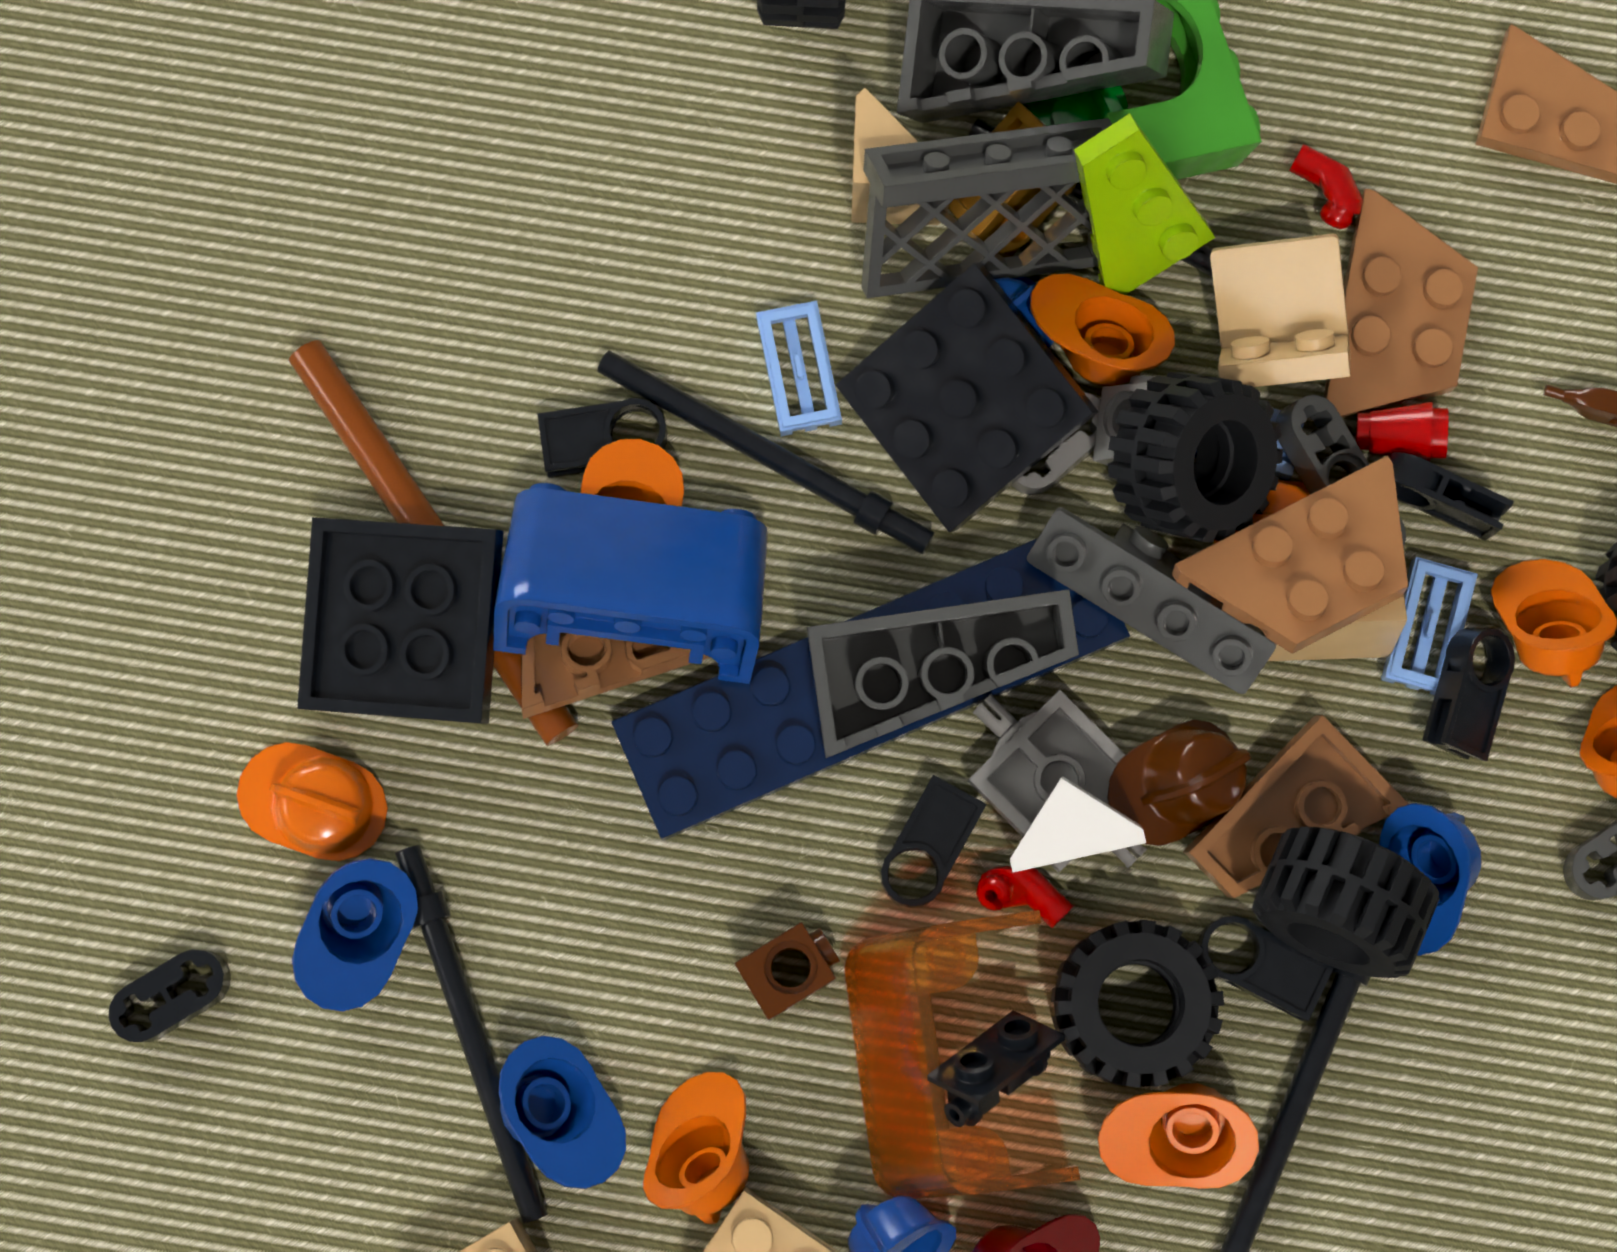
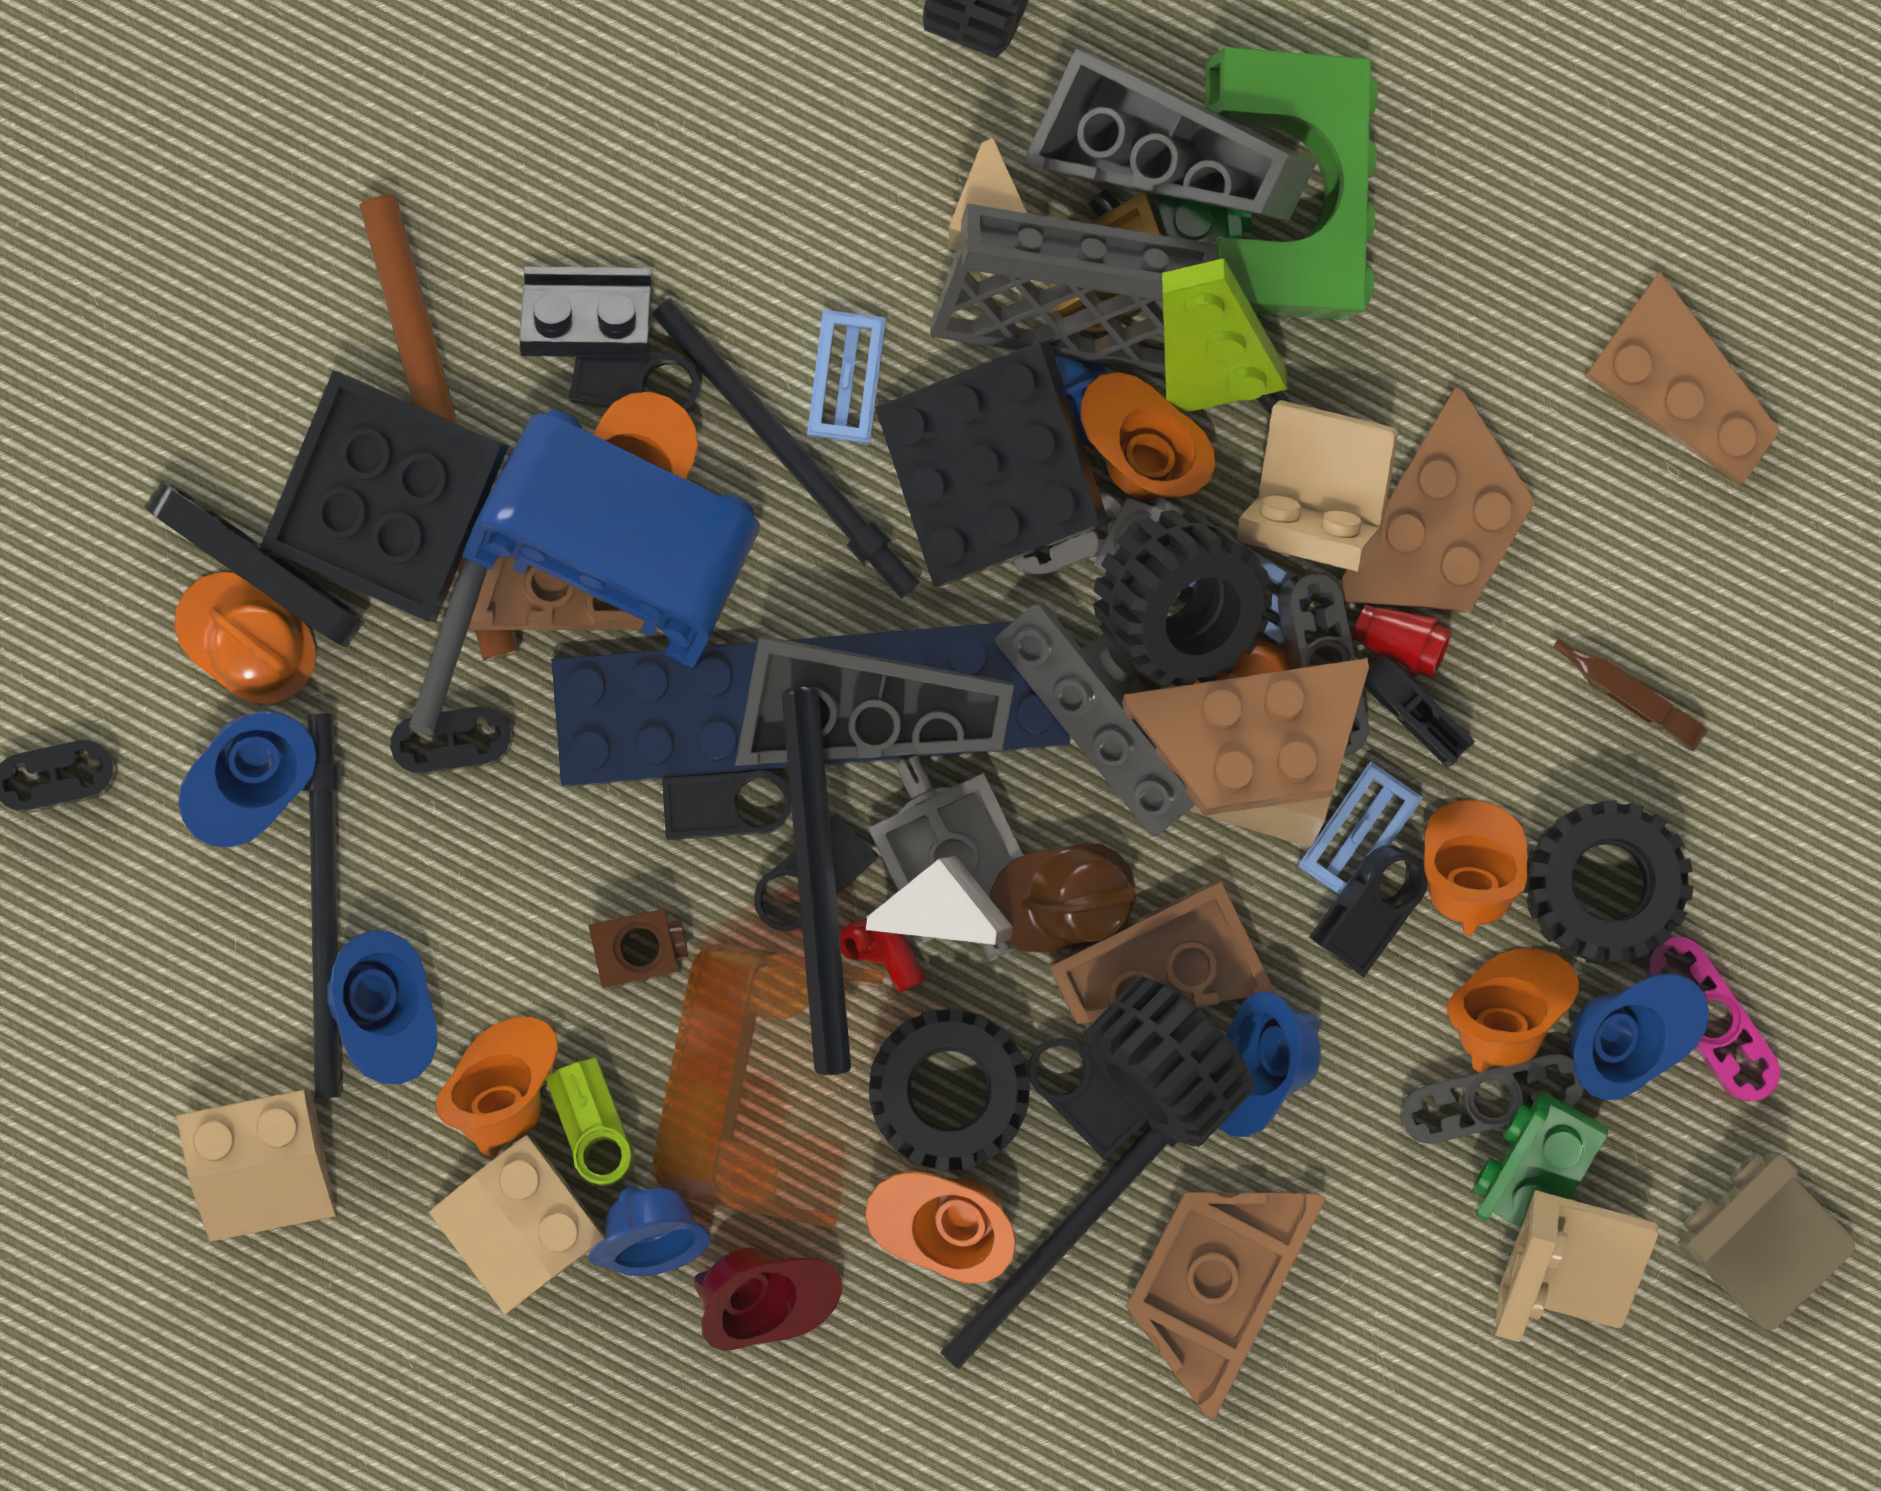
camera: 15 degrees right, 5 degrees up
(297, 726) = (254, 563): none -> black beam
(508, 741) = (448, 648): none -> dark grey bar
(534, 387) = (586, 312): none -> plate
(535, 817) = (454, 756): none -> black beam
(797, 1150) = (590, 1117): none -> lime piece
(806, 811) = (706, 805): none -> black piece
(945, 843) = (816, 881): none -> black axle
(993, 1063) = (795, 1096): black hinge -> none
(1336, 183) = (1429, 375): red arm -> none
(1458, 1102) = (1218, 1281): none -> medium nougat wing

